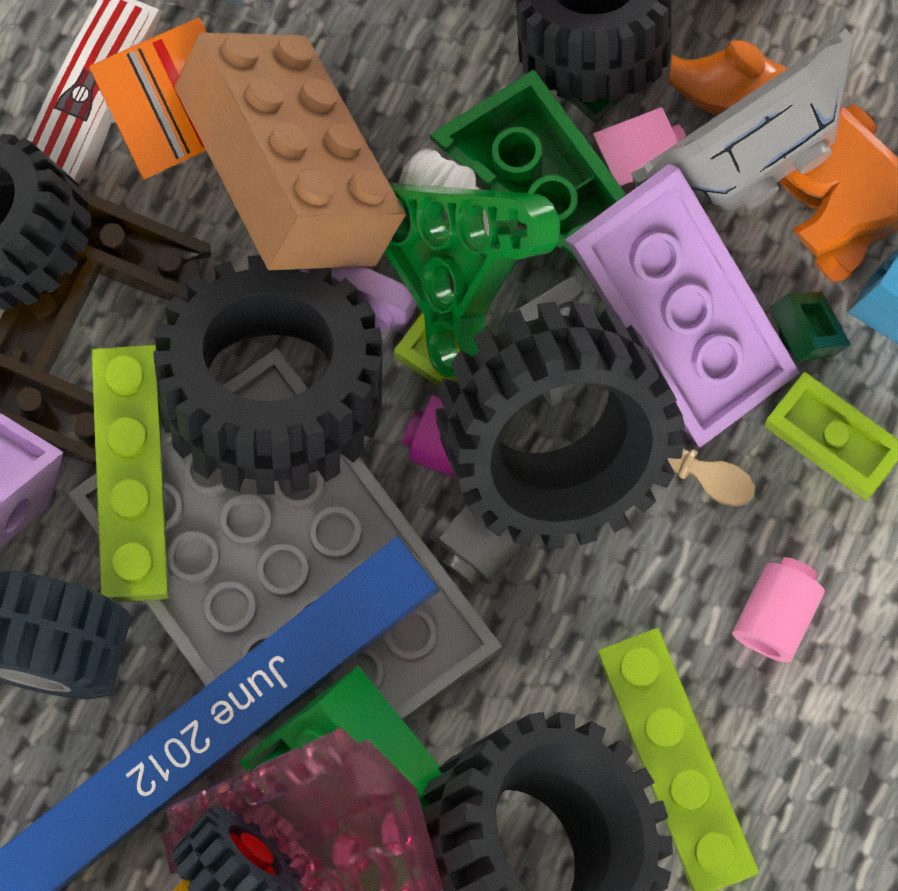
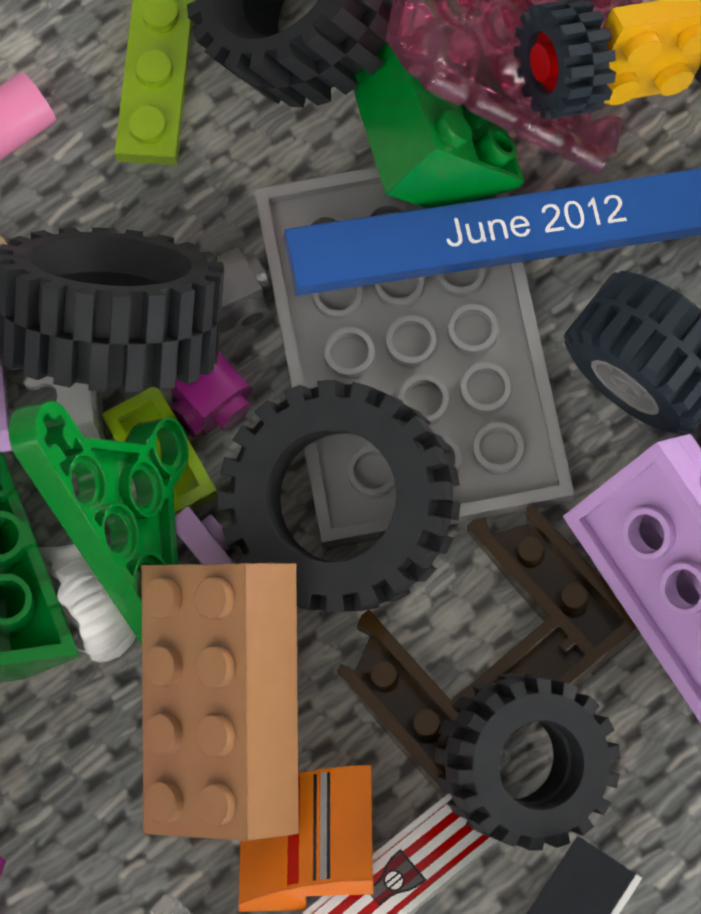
camera: 155 degrees left, 0 degrees up
(129, 475) = (508, 479): lime plate -> none

